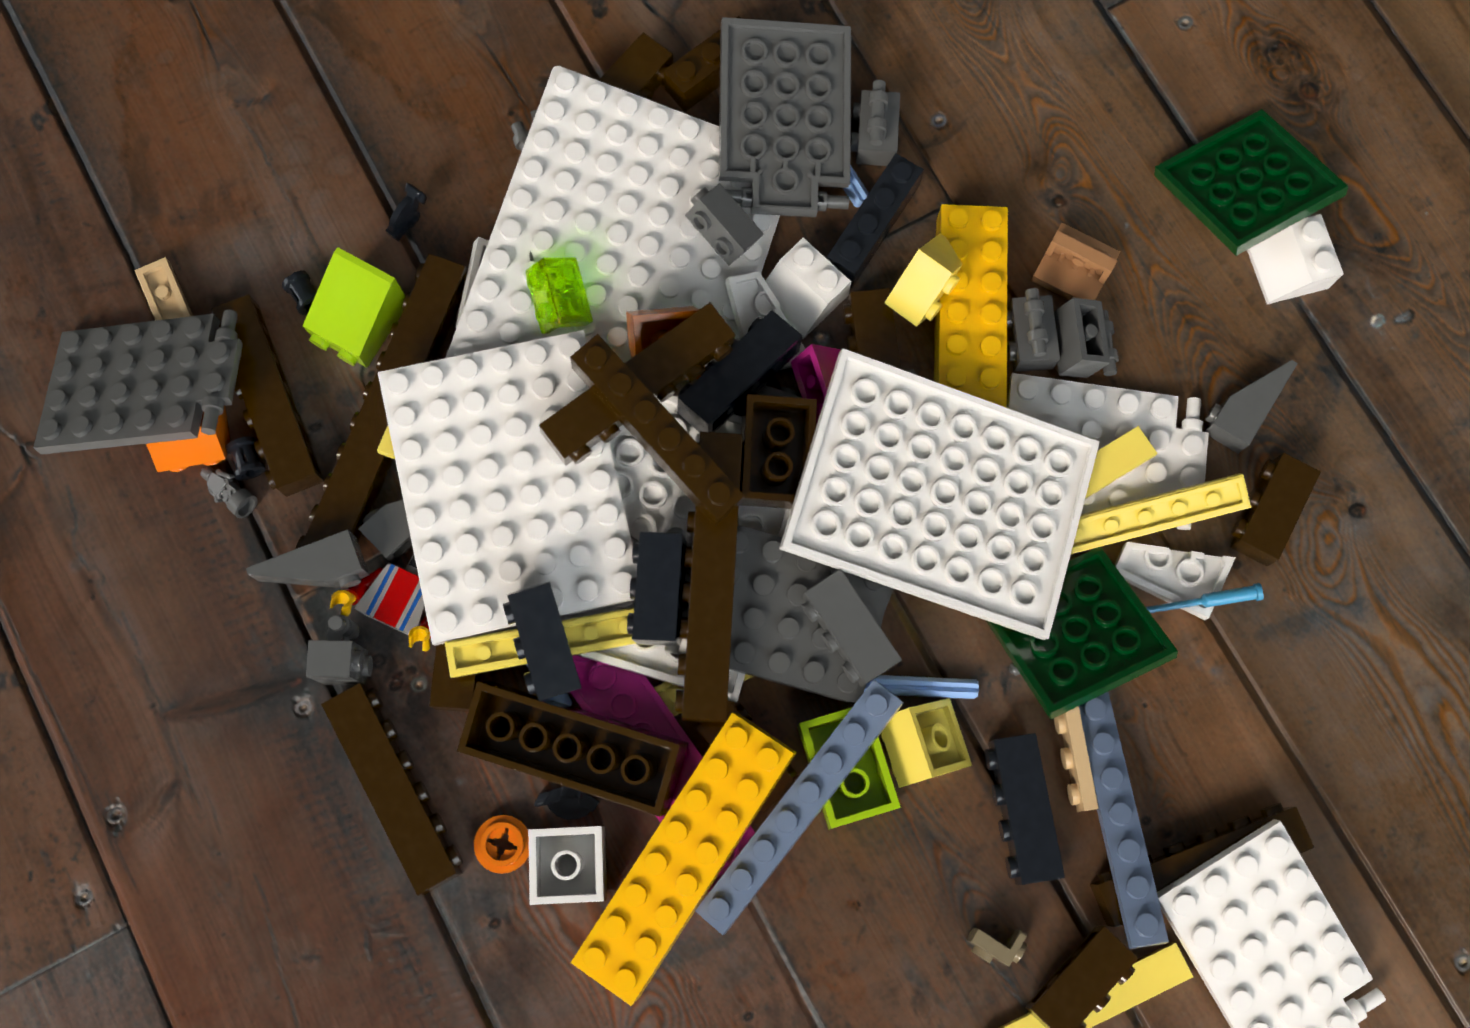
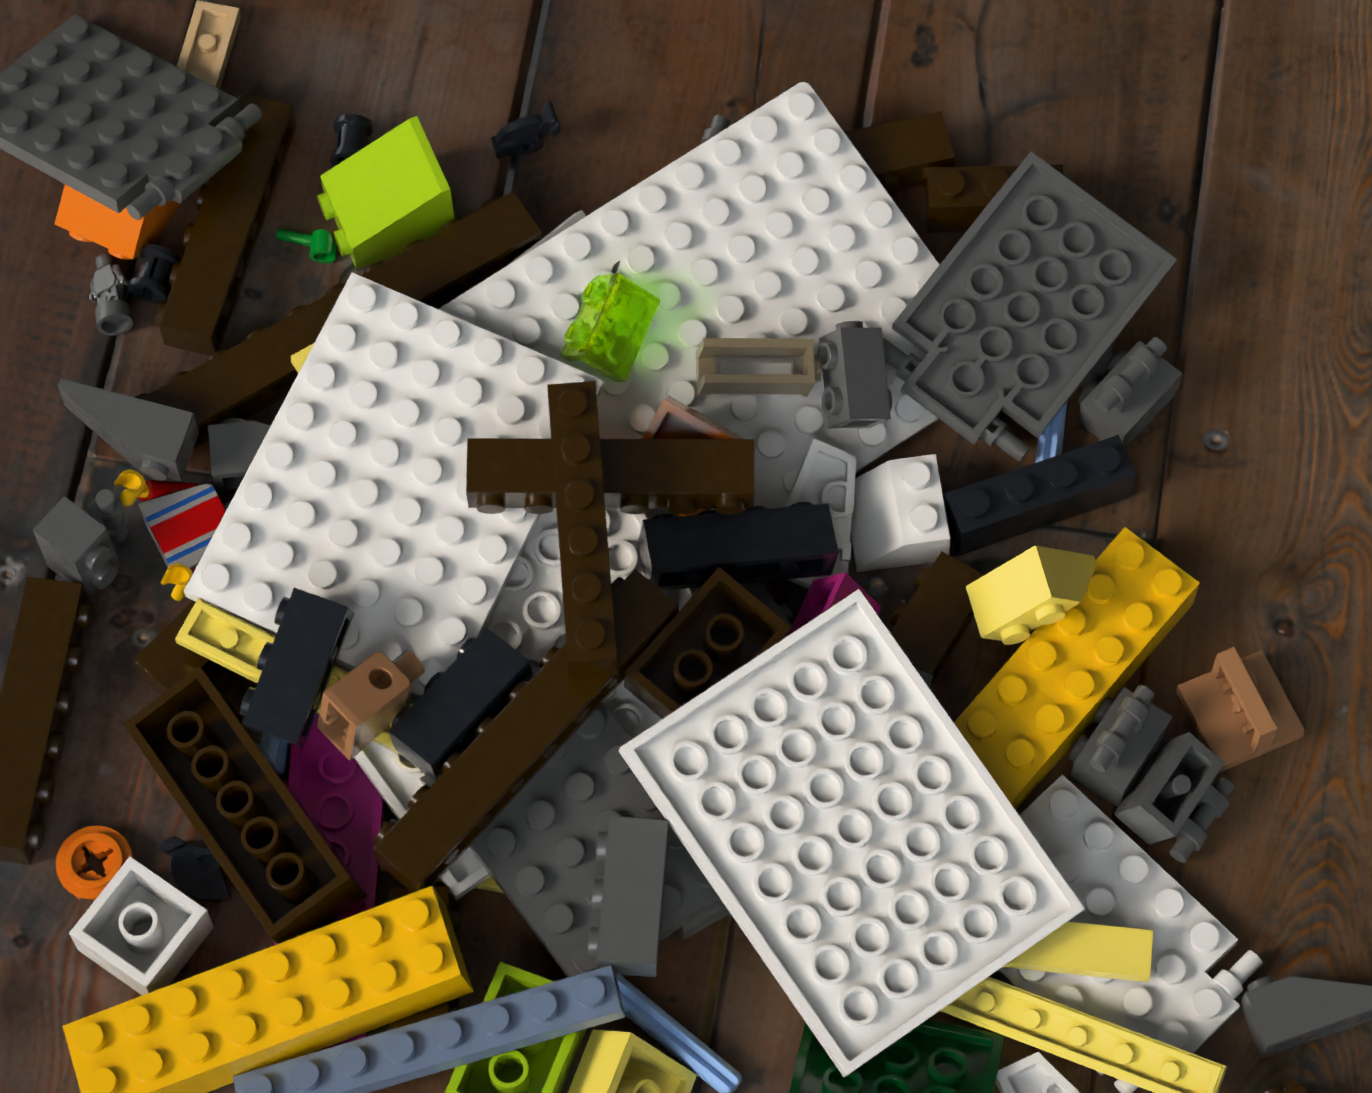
camera: 40 degrees right, 10 degrees down
(332, 366) = (320, 243): none -> green hand
(603, 637) = (367, 700): none -> medium nougat torso
(662, 258) = (756, 366): none -> dark tan window

